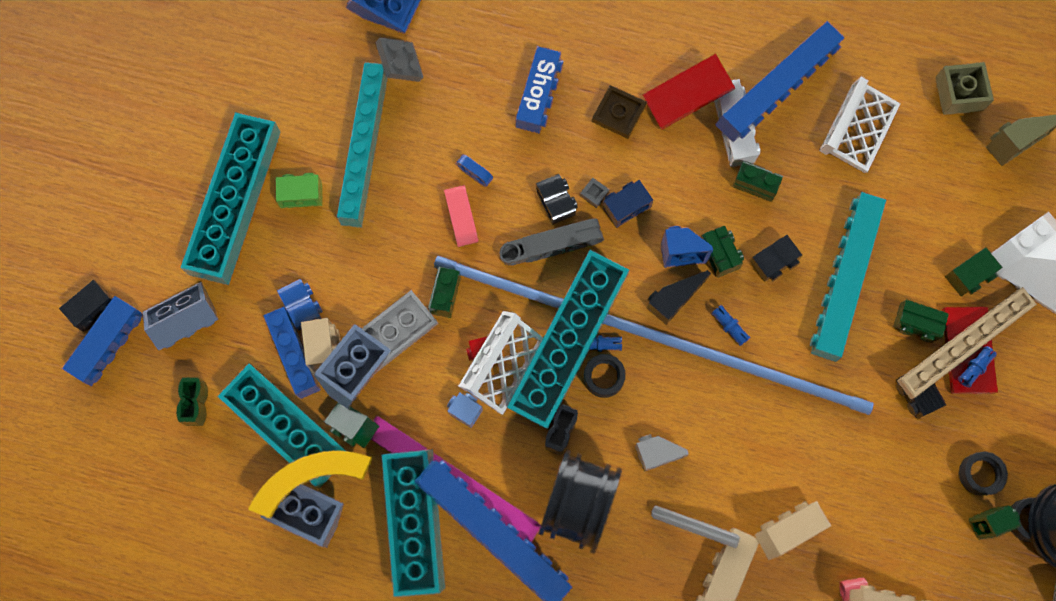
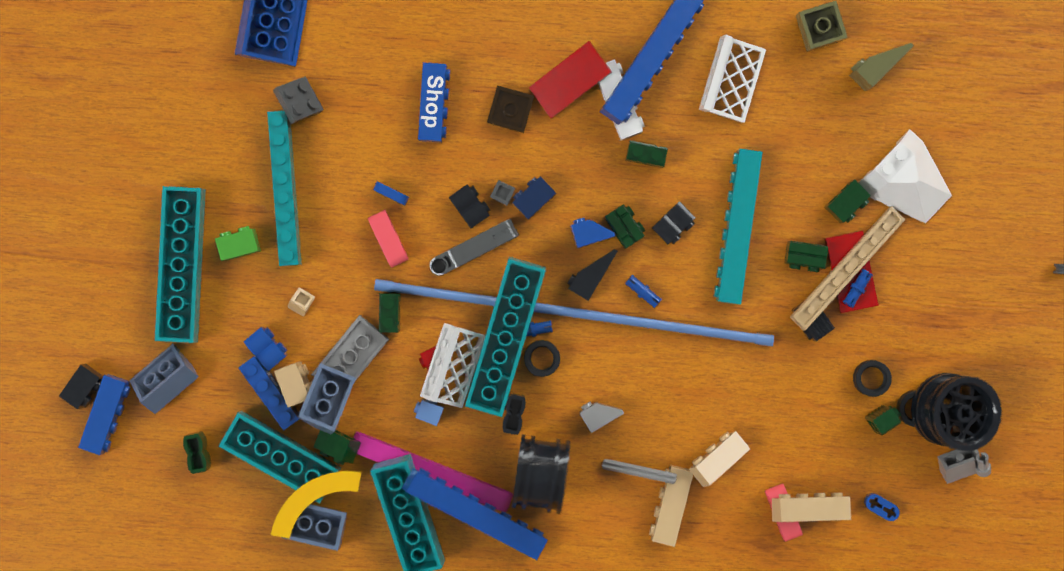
camera: 15 degrees left, 15 degrees up
(351, 265) = (301, 301): none -> tan slope

